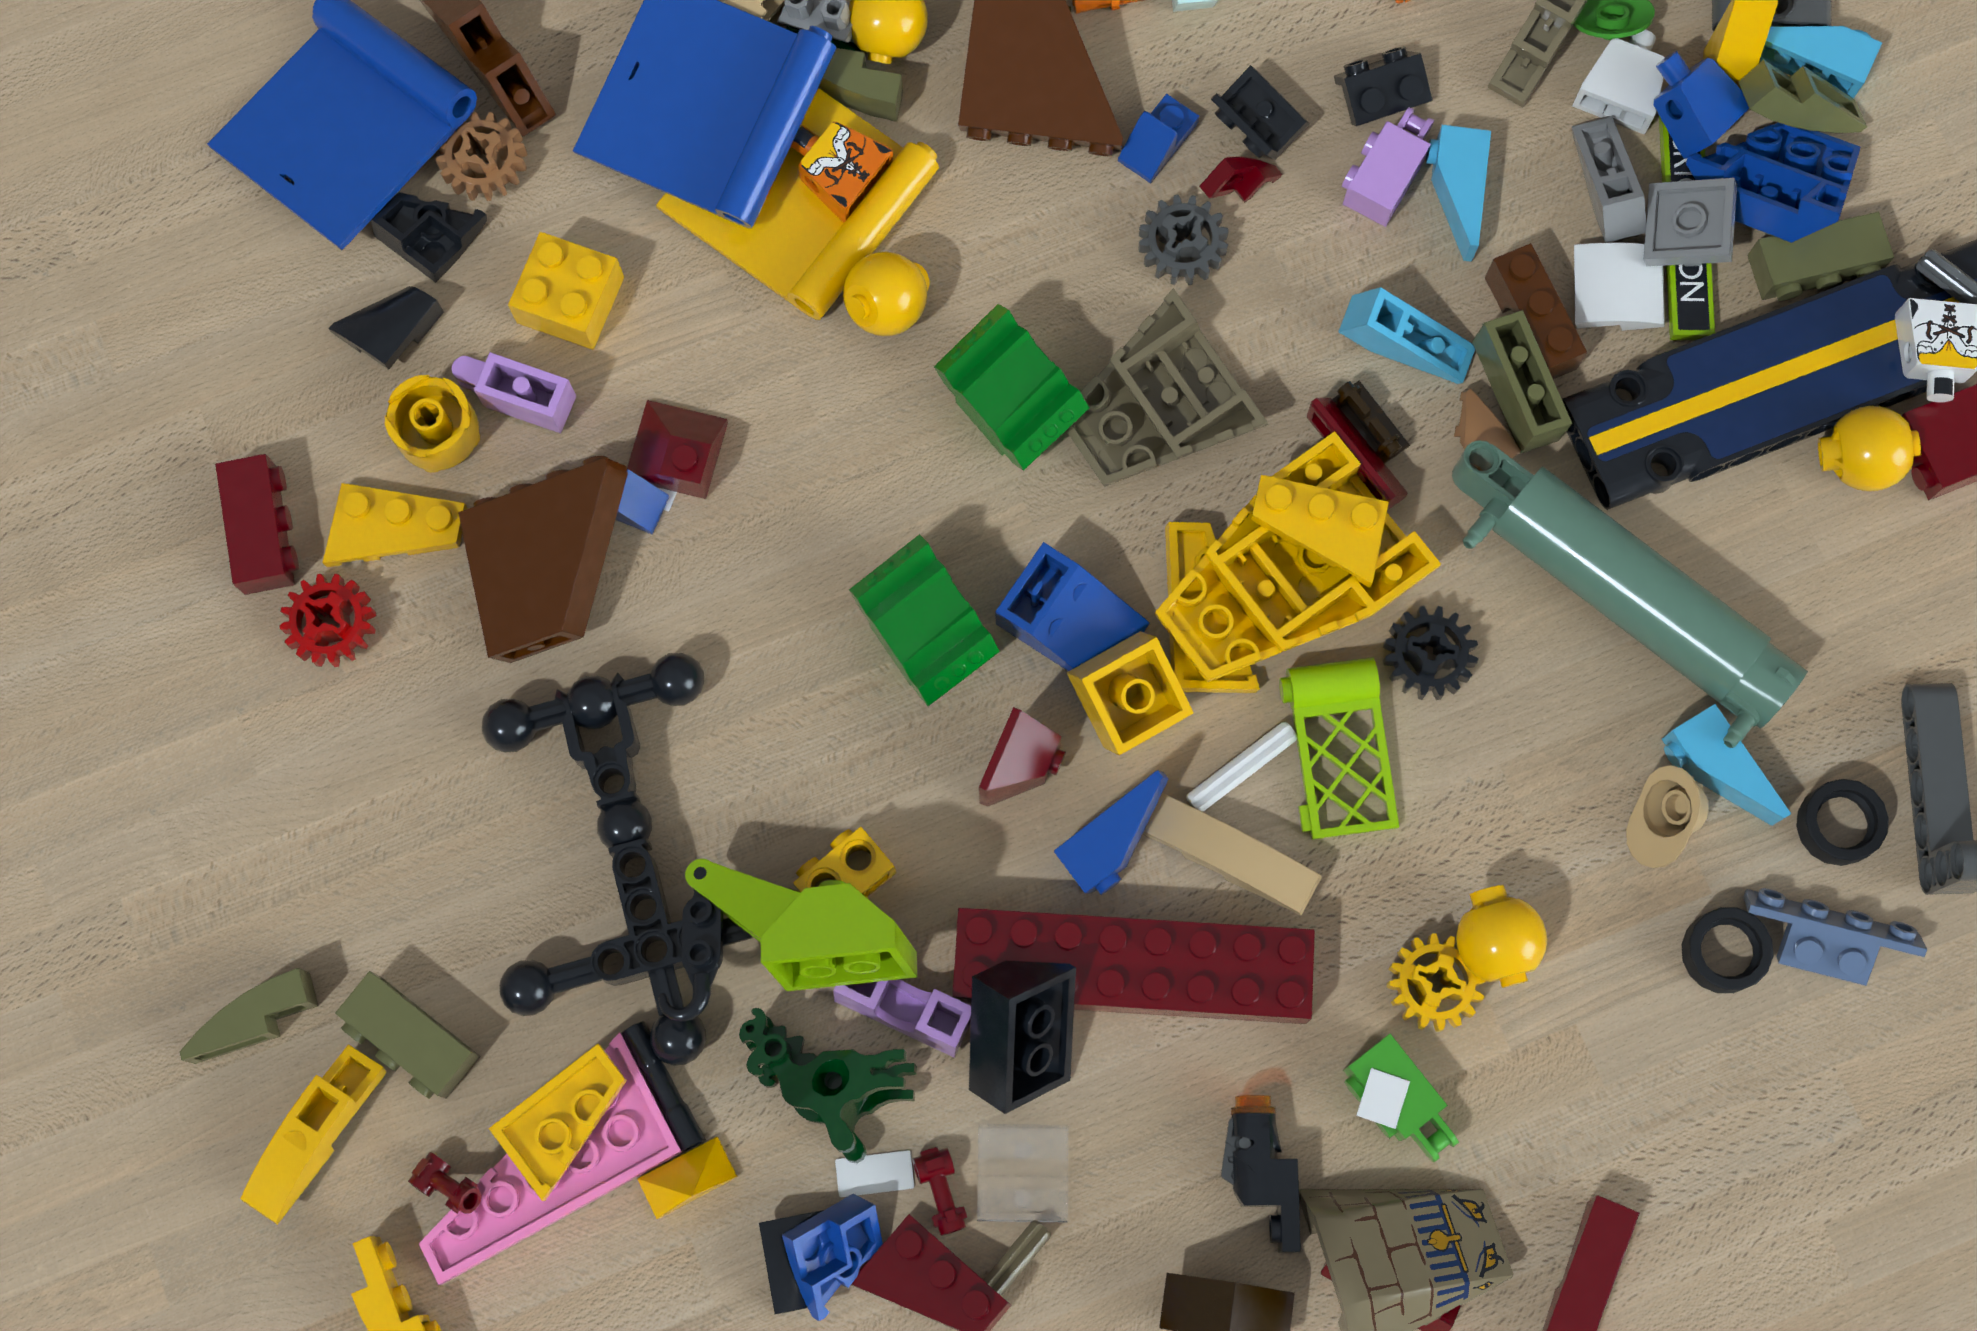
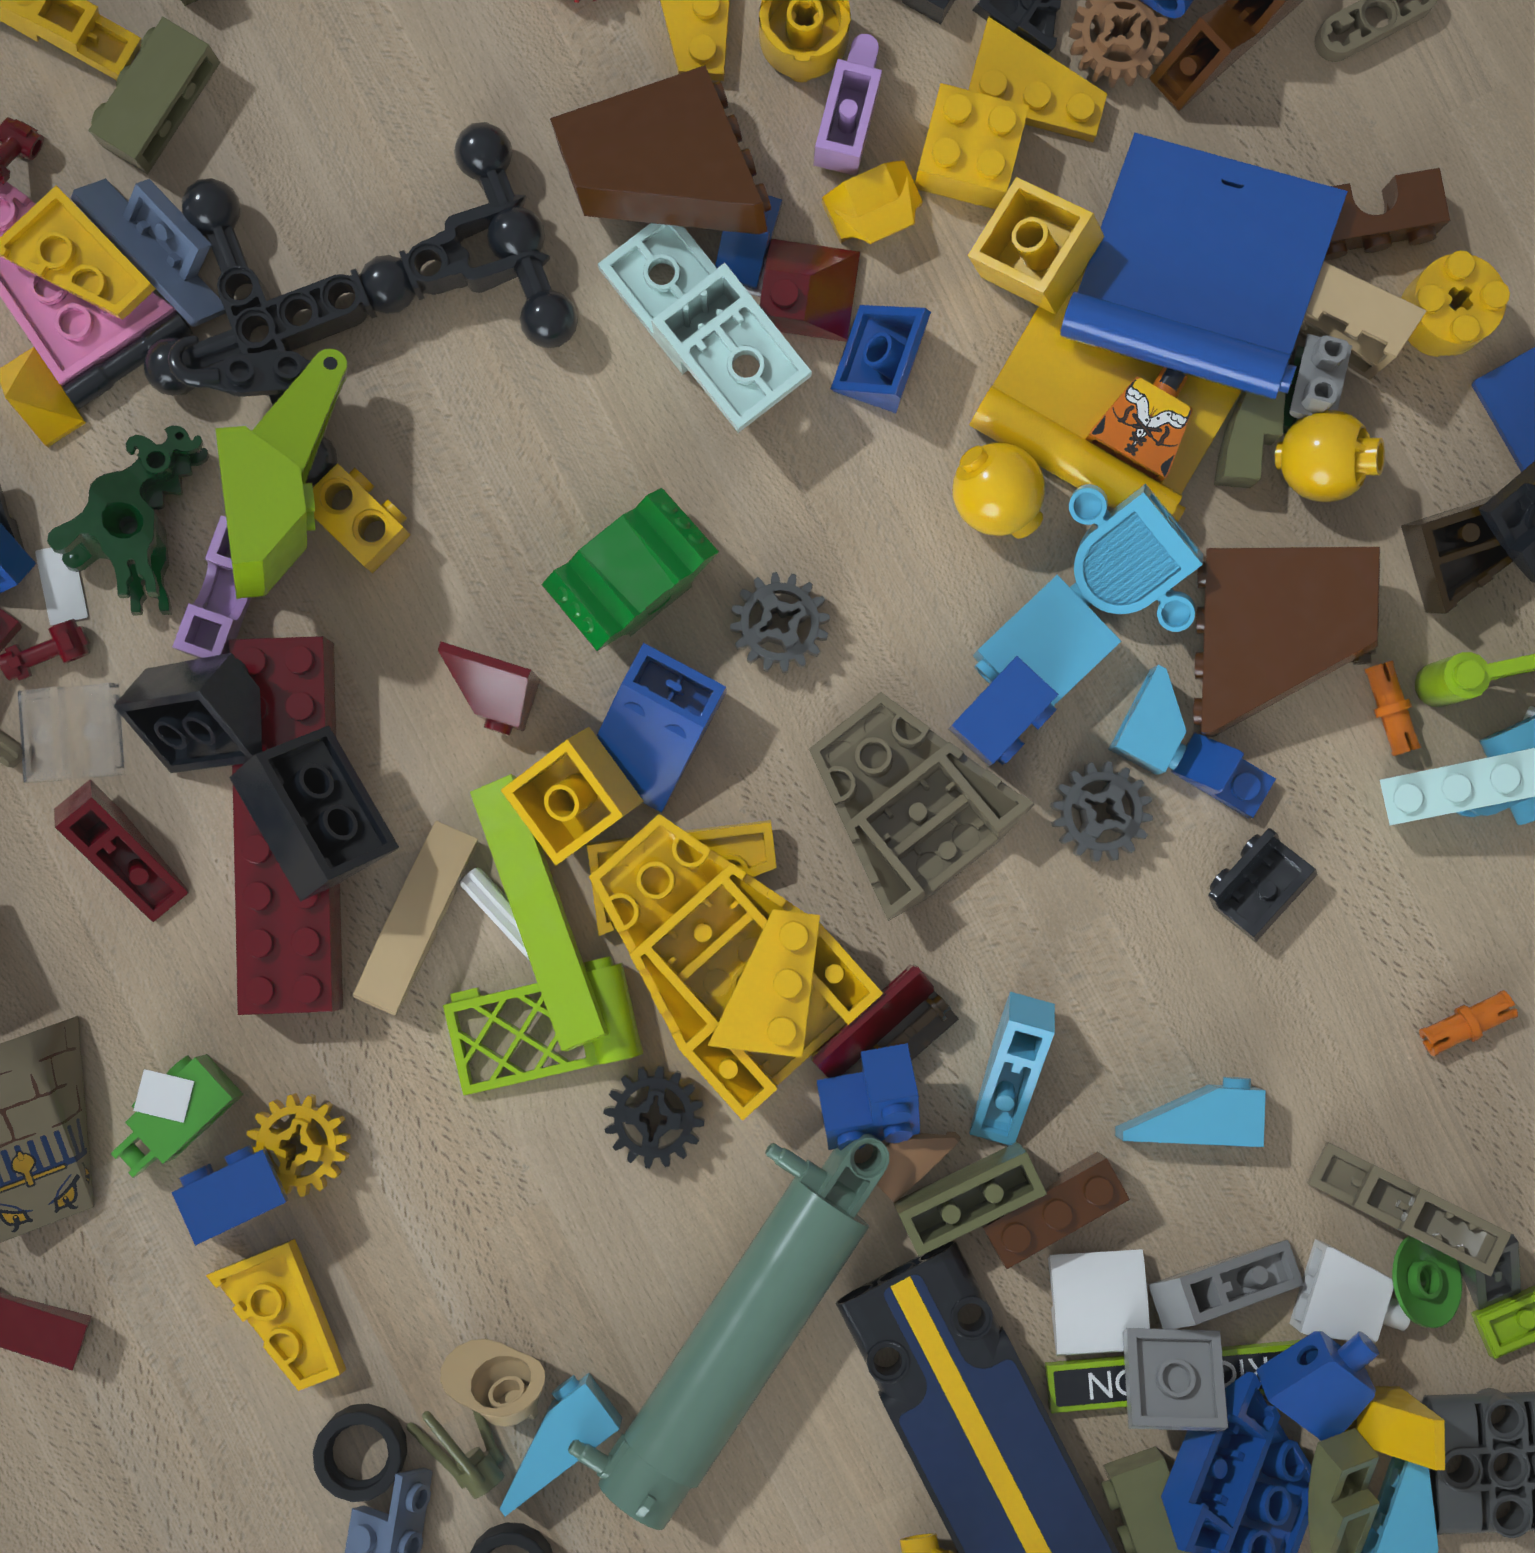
camera: 75 degrees right, 10 degrees up
(505, 241) = (1026, 75): none -> yellow wing
(551, 1041) = (157, 242): none -> sand blue bracket
(608, 382) = (873, 203): none -> yellow slope
(667, 239) = (1036, 245): none -> yellow brick
(700, 534) = (705, 321): none -> light aqua bracket
(747, 385) = (880, 354): none -> blue slope
(960, 186) = (1133, 556): none -> medium azure piece
(969, 506) = (769, 604): none -> dark grey gear
(1010, 388) = (901, 636): green slope -> none
(1034, 271) = (1051, 635): none -> medium azure panel
(1094, 308) = (1004, 712): none -> blue brick
(1108, 842) = (409, 785): blue slope -> none
(1109, 189) = (1152, 726): none -> medium azure slope
(1129, 920) = (313, 811): none -> black slope
(1141, 1131) = (118, 850): none -> dark red slope
(1237, 735) = (540, 919): none -> lime tile
(1239, 175) = (1186, 874): dark red slope -> none
(1257, 1174) = (88, 974): black plate -> none
(1384, 85) = (1313, 1023): black bracket -> none
(1388, 168) = (1211, 1034): lavender brick -> none
(1430, 447) = (874, 1101): none -> blue brick
(1485, 1041) = (230, 1196): none -> blue brick
(1501, 937) = (343, 1210): yellow brick -> none
(1589, 1012) = (284, 1309): none -> yellow wing
(1744, 844) = (473, 1470): none -> olive plant

